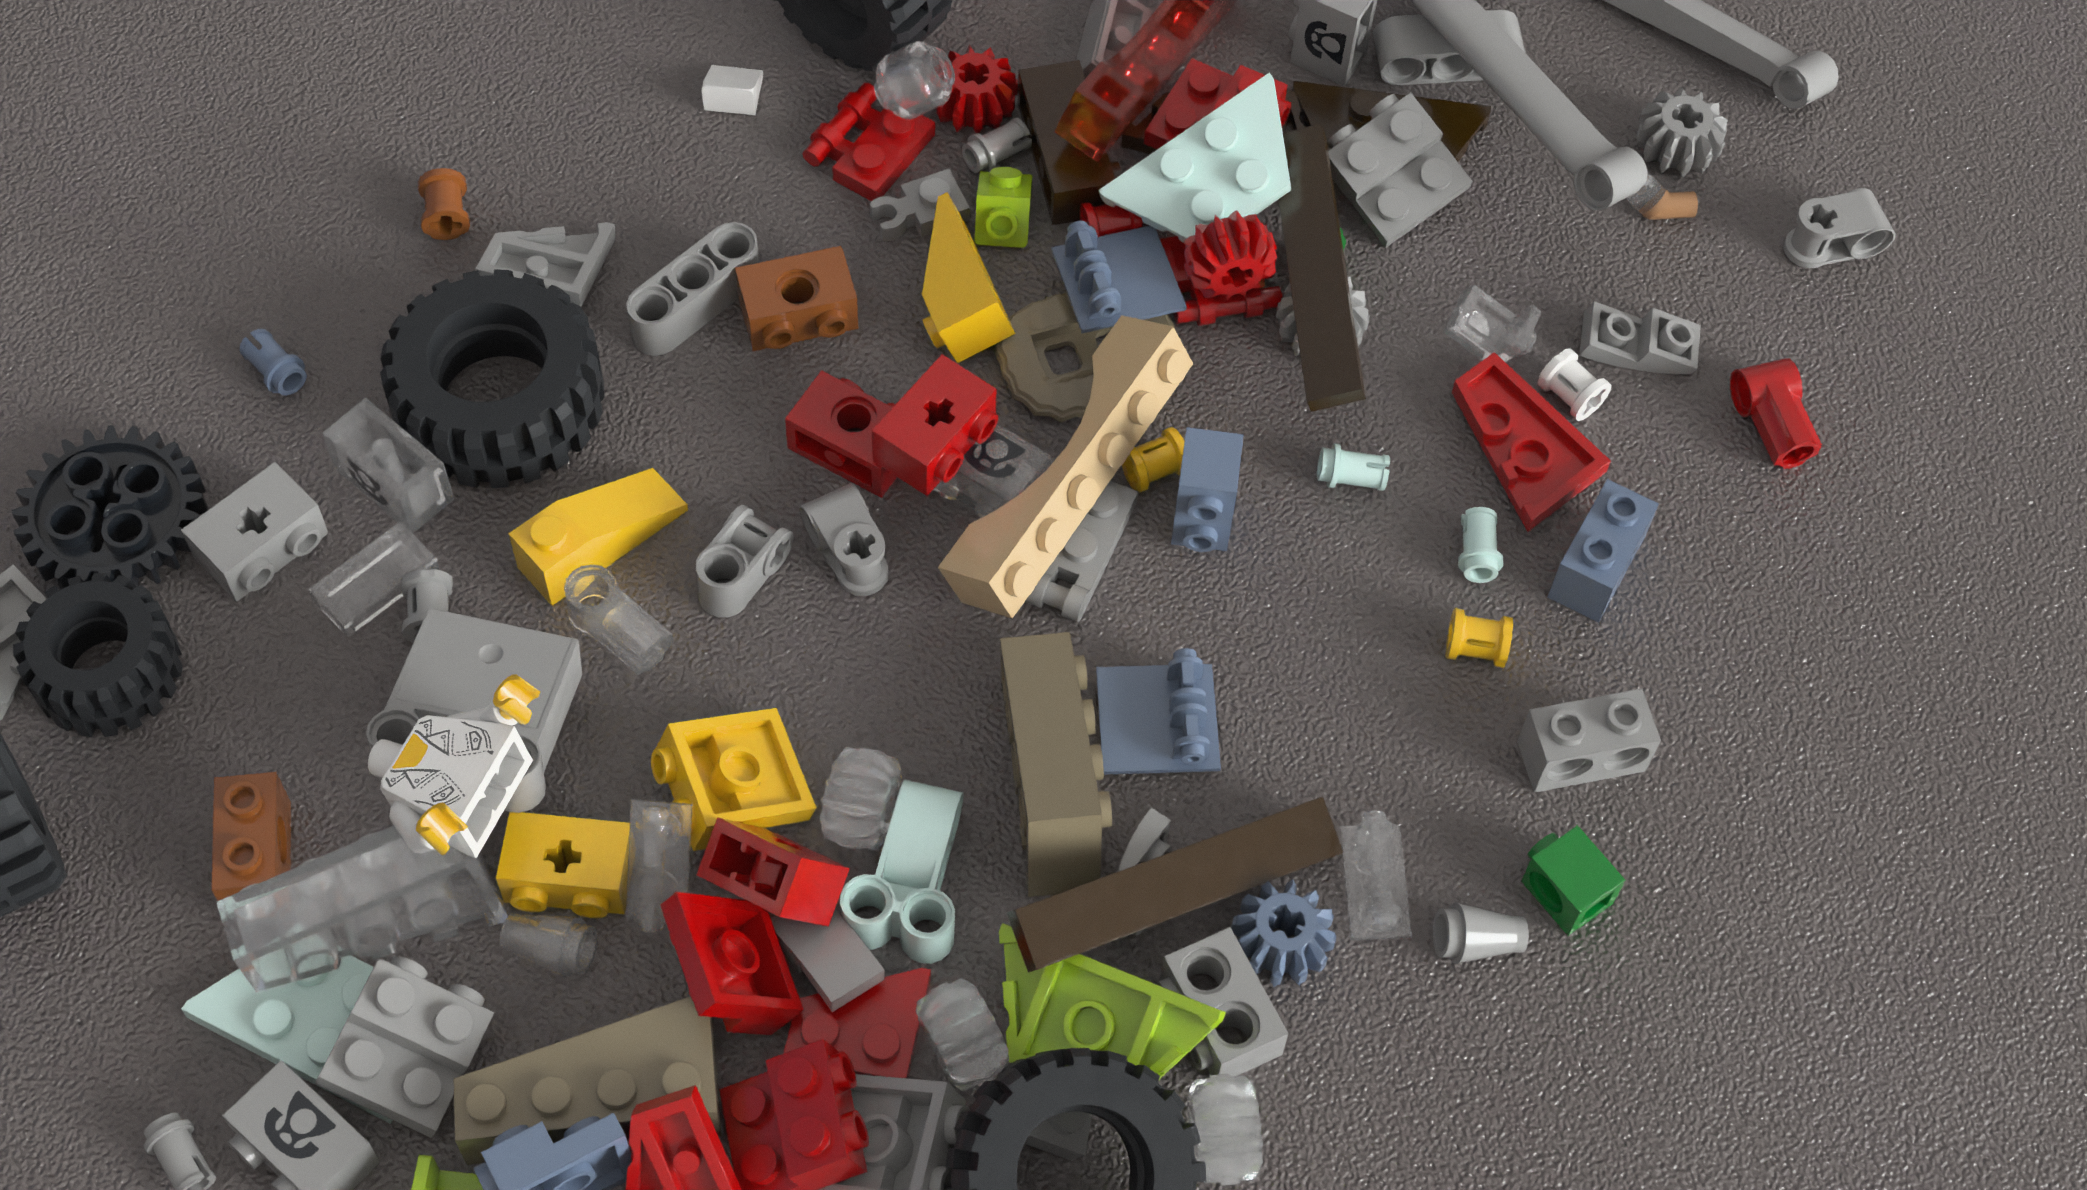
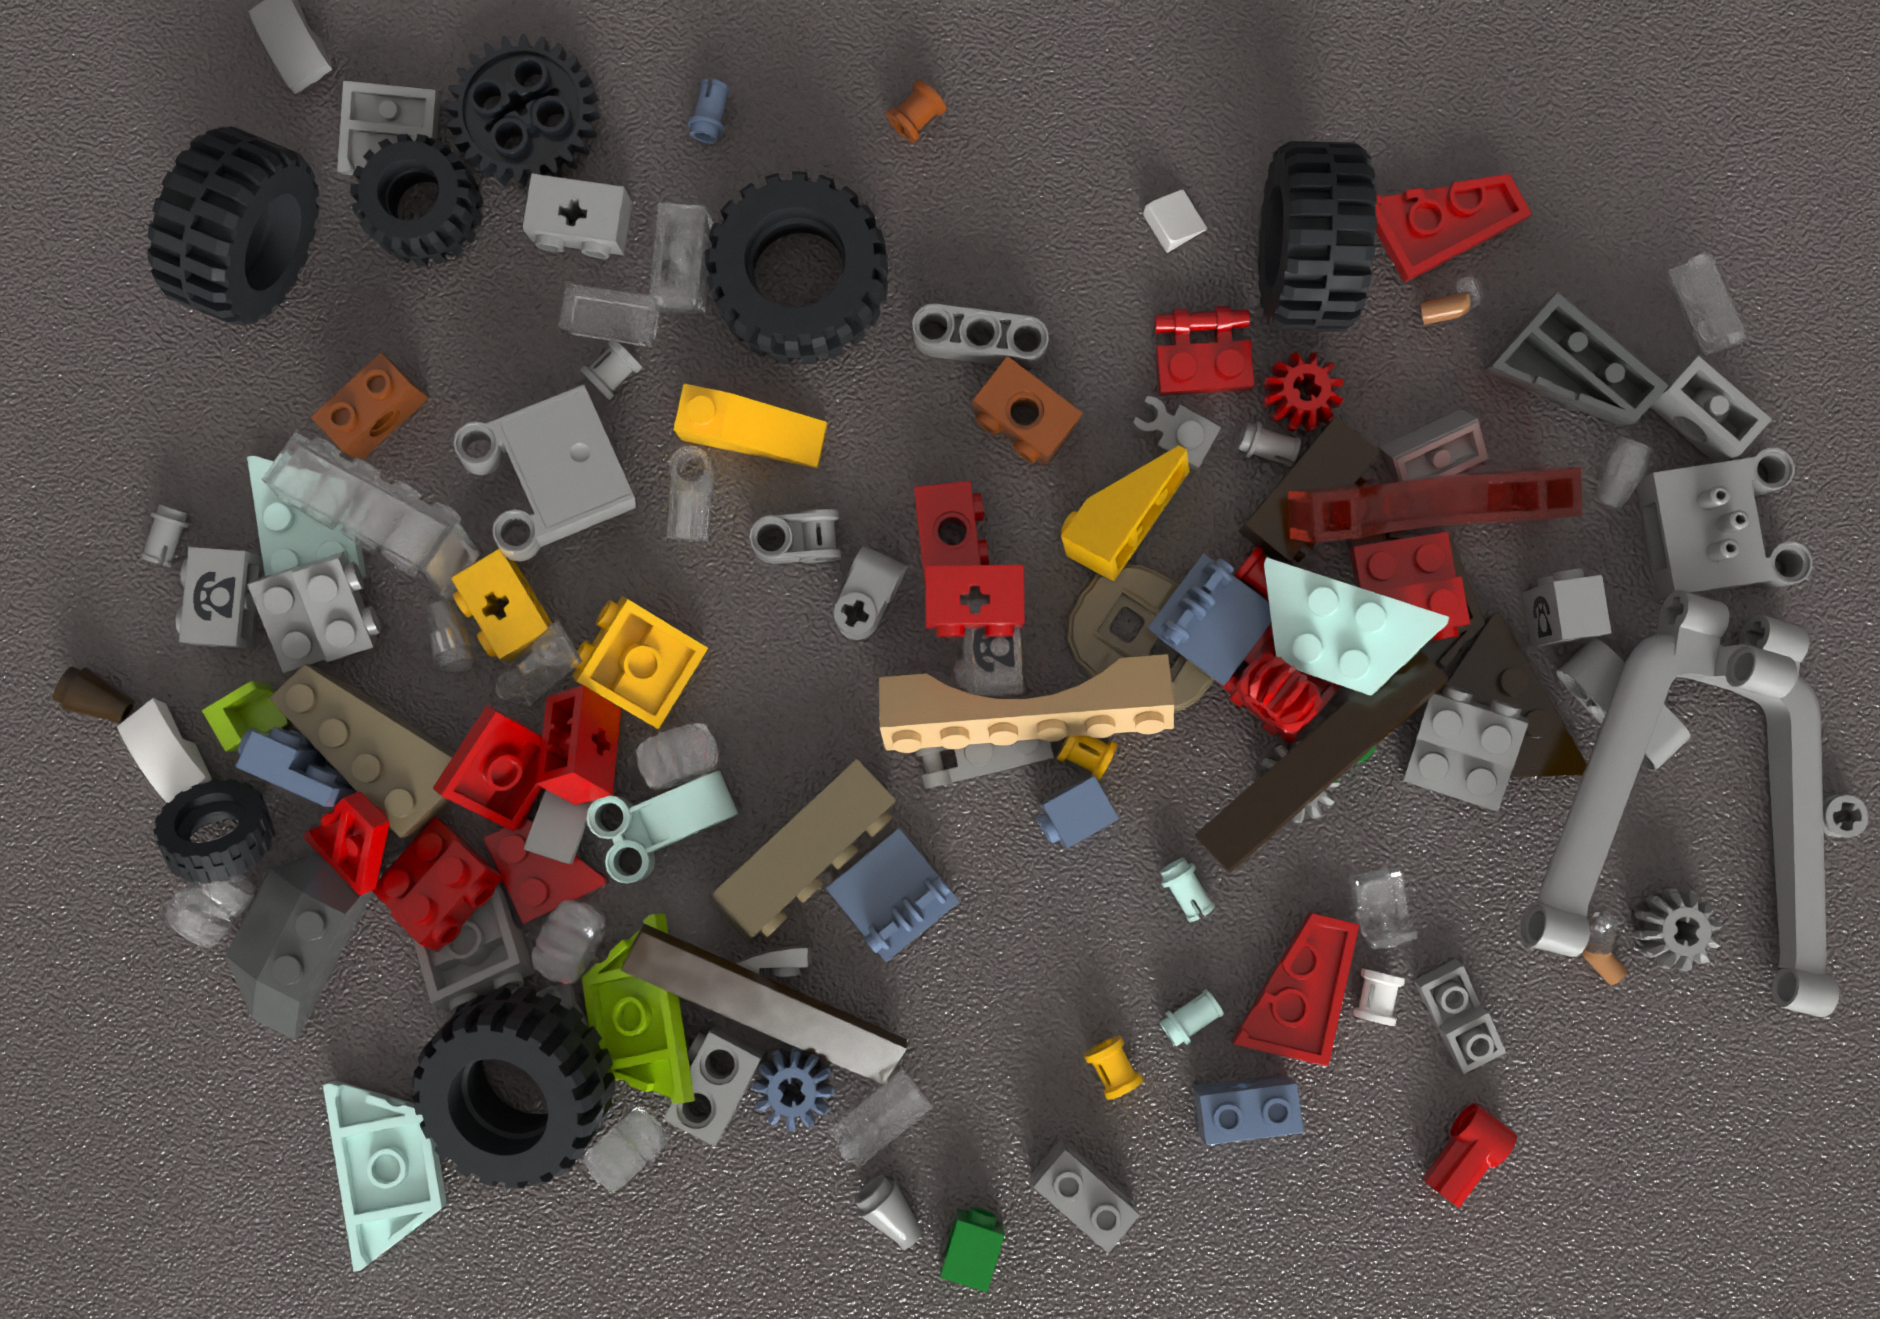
camera: 60 degrees right, 25 degrees up
(456, 772) = (451, 516): white torso -> none
(550, 255) = (925, 221): light grey wing -> none
(914, 80) = (1260, 353): clear head -> none
(1003, 207) = (1219, 489): lime bracket -> none
(1838, 230) = (1677, 1102): light grey piece -> none

